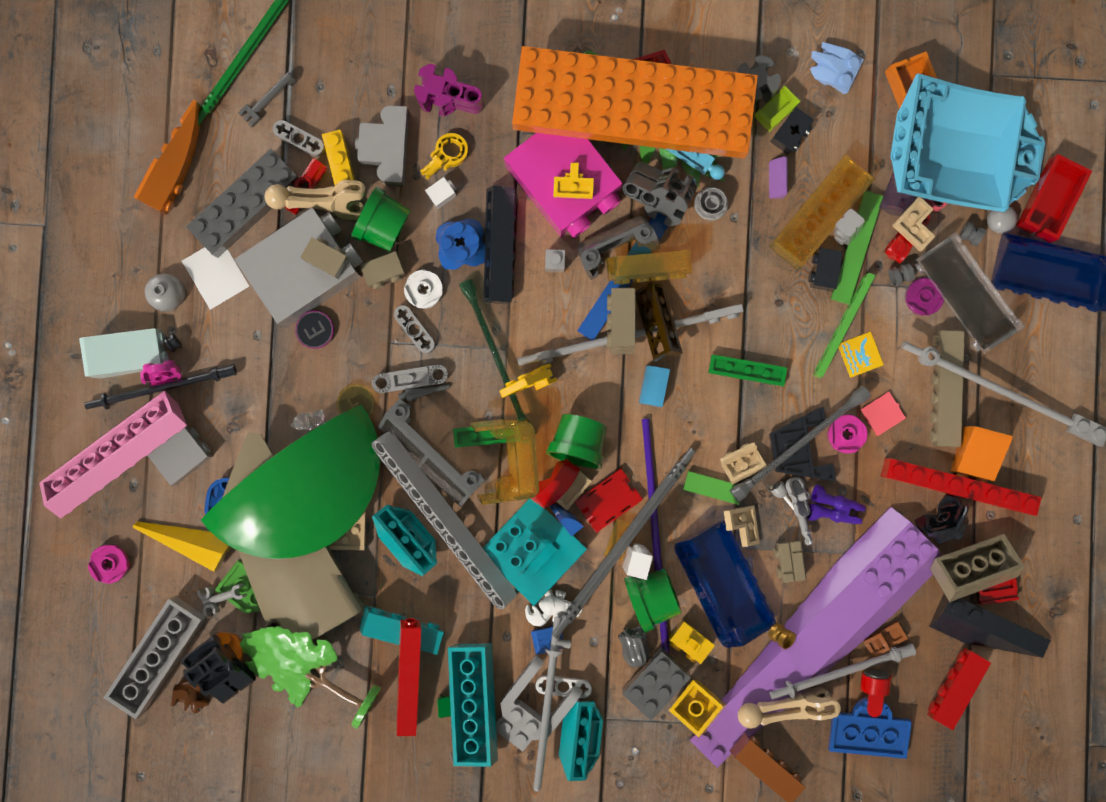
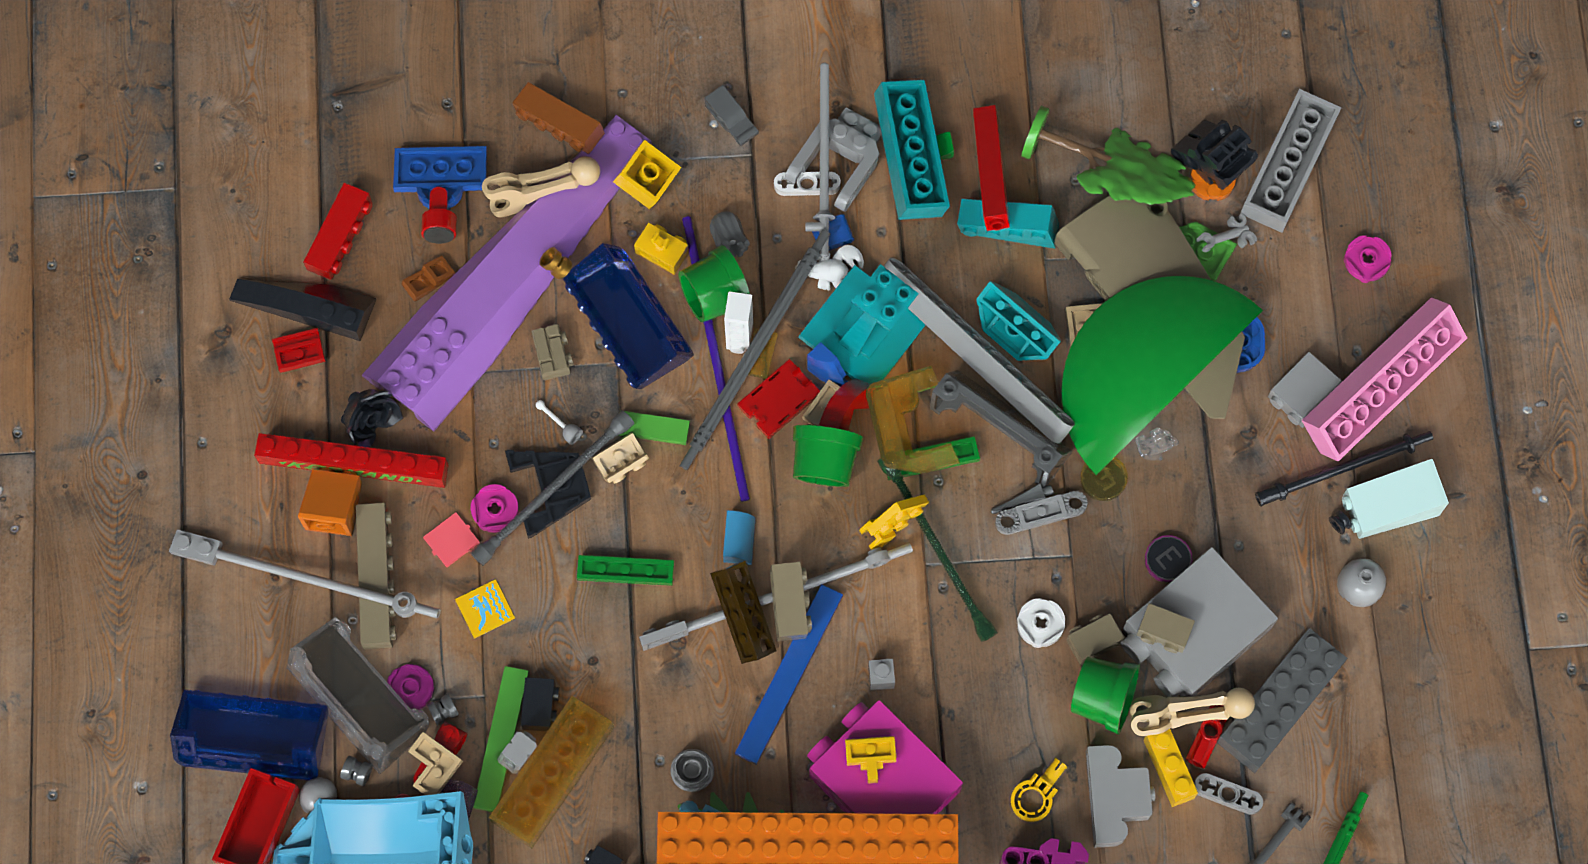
camera: 175 degrees right, 15 degrees down
(160, 373) = (1352, 476): dark pink plate -> none
(166, 175) = (1383, 723): orange wedge -> none
(188, 695) = (1251, 125): reddish brown animal -> none
(193, 543) = (1279, 293): yellow wedge -> none
(215, 277) = (1302, 607): white sticker -> none
(401, 321) = (1062, 581): light grey beam -> none
(441, 192) = (1036, 743): white brick -> none
(470, 254) = (996, 700): blue brick -> none
(499, 245) = (954, 685): black brick -> none
(580, 740) = (779, 124): teal wedge -> none
(620, 754) = (730, 115): none -> dark grey piece
(633, 229) = (788, 719): dark grey windscreen -> none
(653, 265) = (763, 675): clear yellow piece -> none
(656, 683) = (698, 197): dark grey brick -> none
(660, 191) = (769, 772): dark grey connector -> none
(744, 520) = (610, 390): tan plate -> none
(778, 178) = (610, 814): medium lavender slope -> none
(798, 494) = (551, 433): light grey piece -> none
(841, 504) = (494, 418): dark purple piece -> none
(843, 325) = (510, 638): bright green tile -> none
(894, 654) = (417, 260): light grey bar -> none
(977, 567) = (328, 365): dark tan brick -> none

